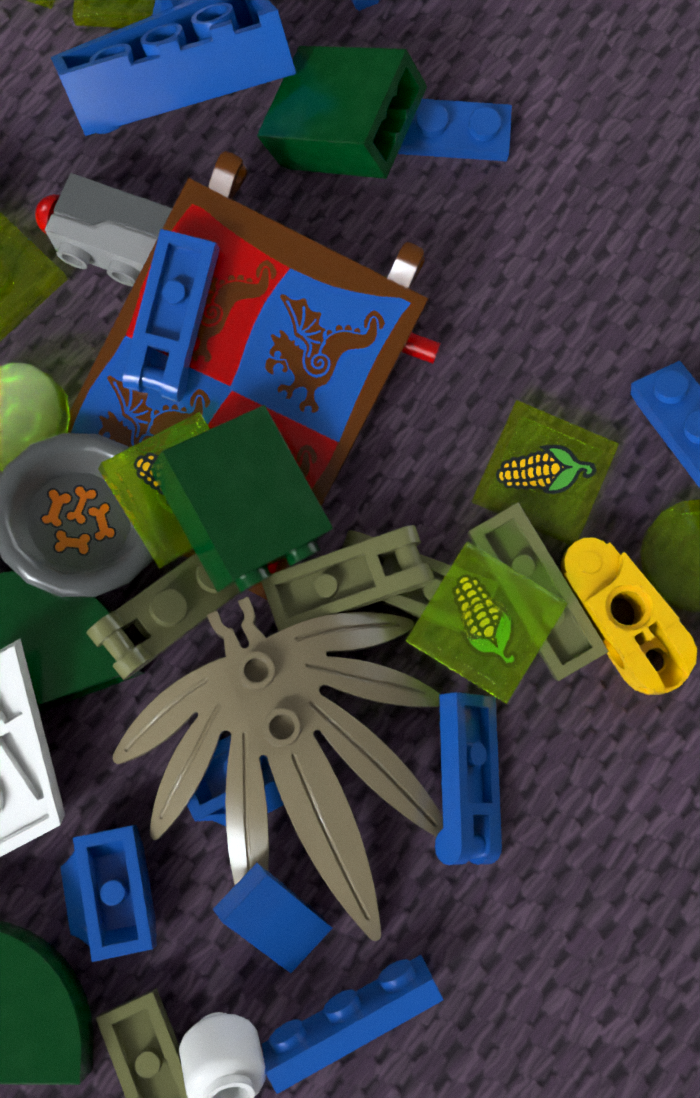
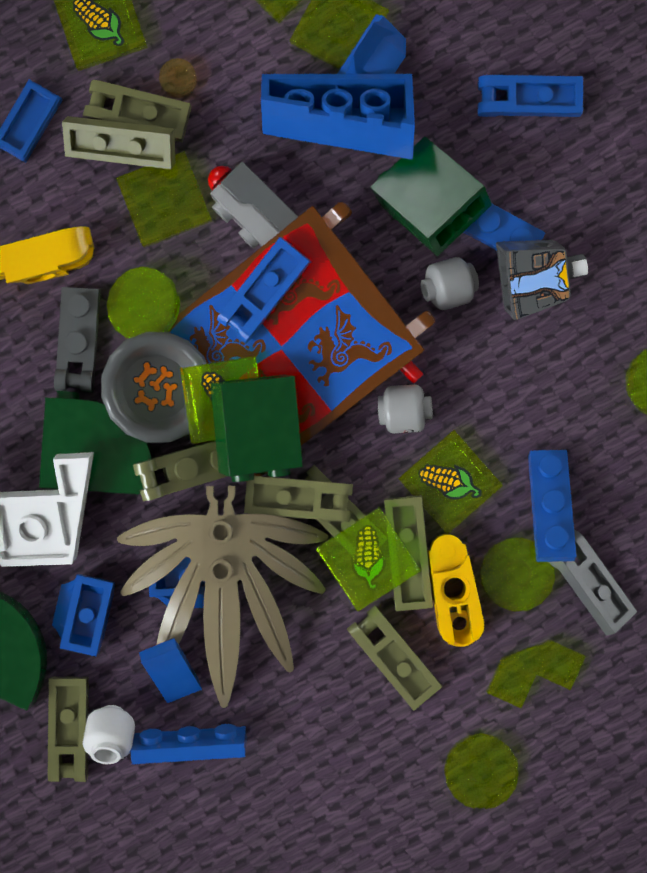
camera: 20 degrees right, 10 degrees up
(419, 212) = (450, 283): none -> light grey head
(437, 399) = (404, 409): none -> light grey head
(469, 780) = (317, 643): blue plate -> none
(526, 153) = (536, 275): none -> torso
(592, 751) = (395, 659): none -> olive plate

